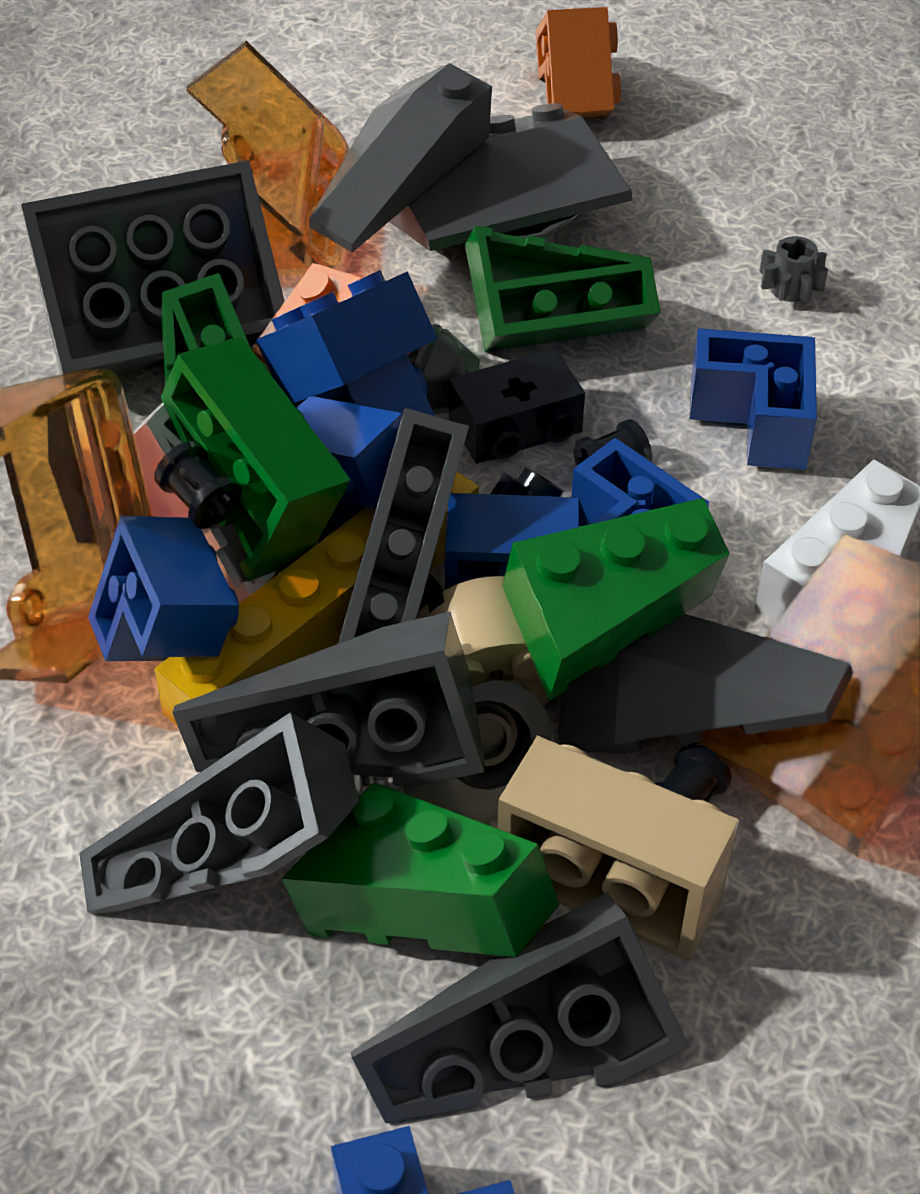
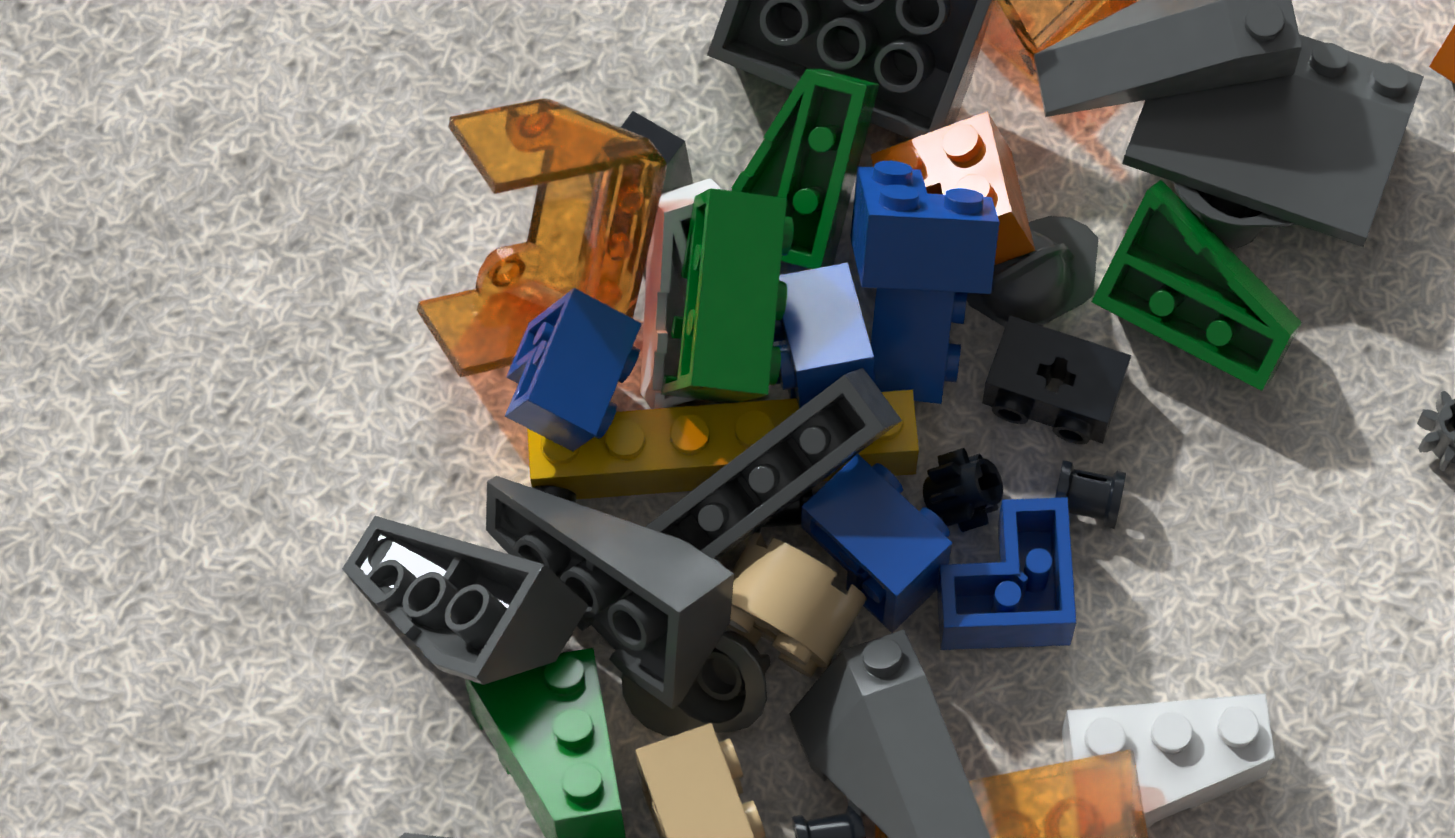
camera: 45 degrees right, 20 degrees up
(194, 460) = (656, 302): black bush -> none
(608, 584) = (878, 649): green wedge -> none
(762, 384) = (1279, 539): blue brick -> none

